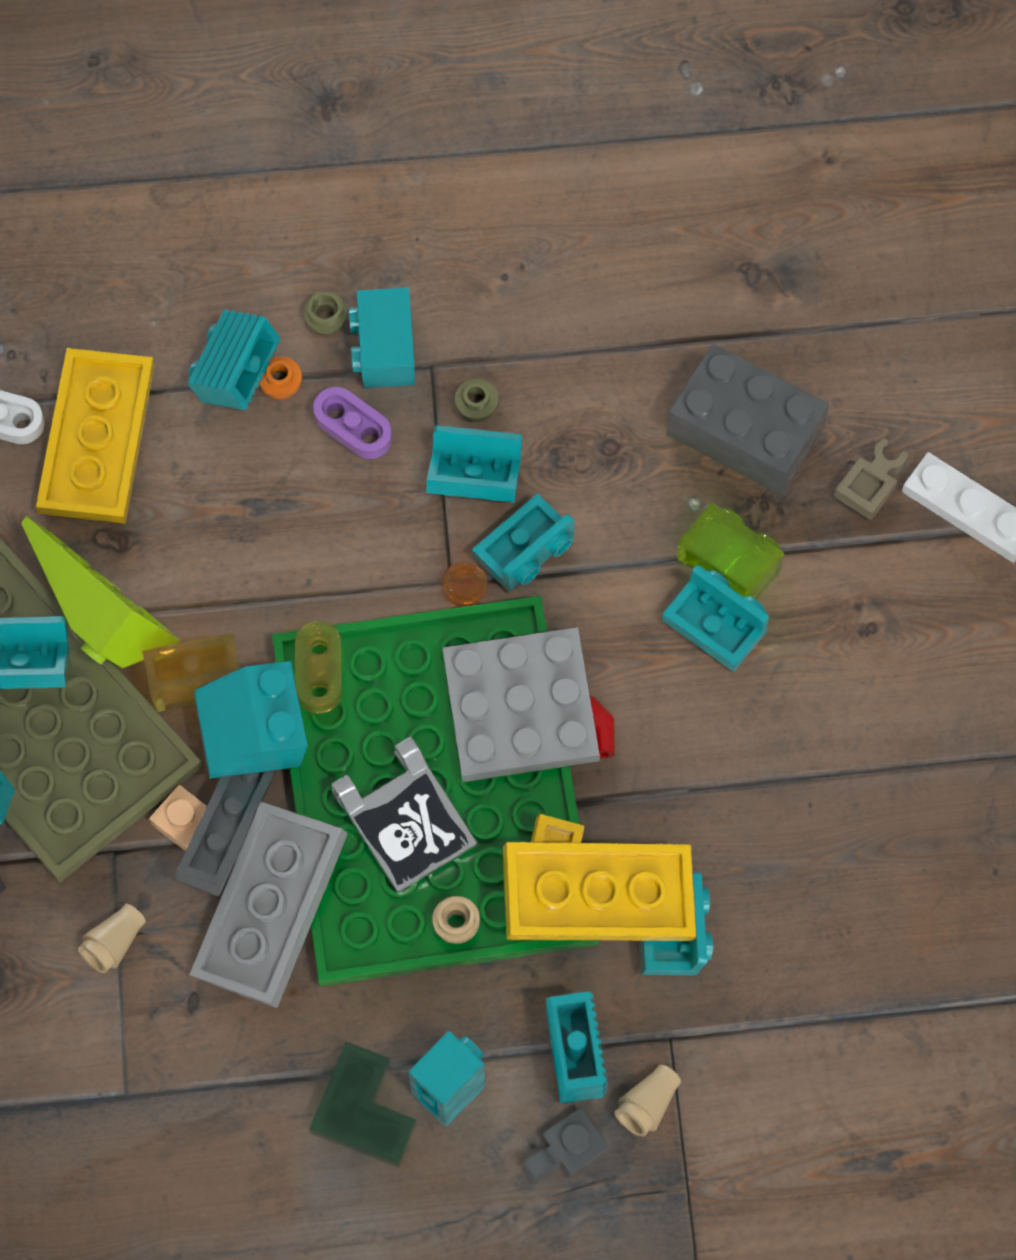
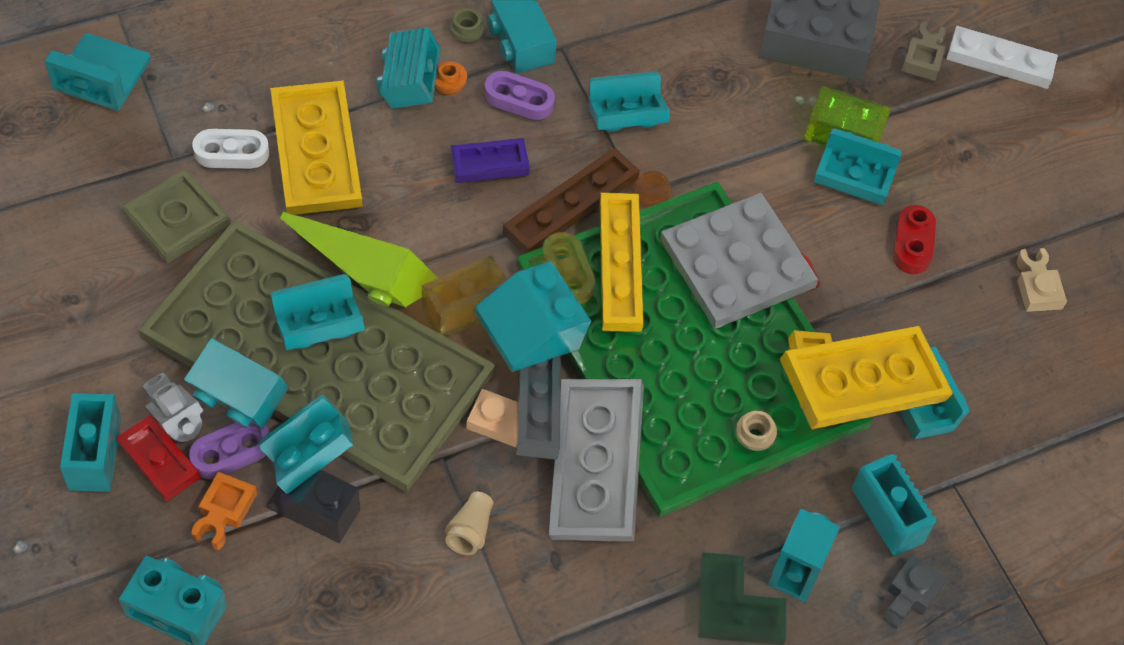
camera: 25 degrees left, 10 degrees down
(288, 500) = (490, 160): none -> dark purple plate
(363, 577) = (570, 201): none -> reddish brown plate
(381, 674) = (621, 262): none -> yellow plate
(406, 821) = (682, 365): flag -> none
(476, 411) = (608, 61): olive plate -> none
(525, 543) = (688, 149): teal bracket -> none
(646, 1103) = (963, 535): tan cone -> none
(753, 722) = (914, 235): none -> red plate
(879, 824) = (1039, 287): none -> tan plate

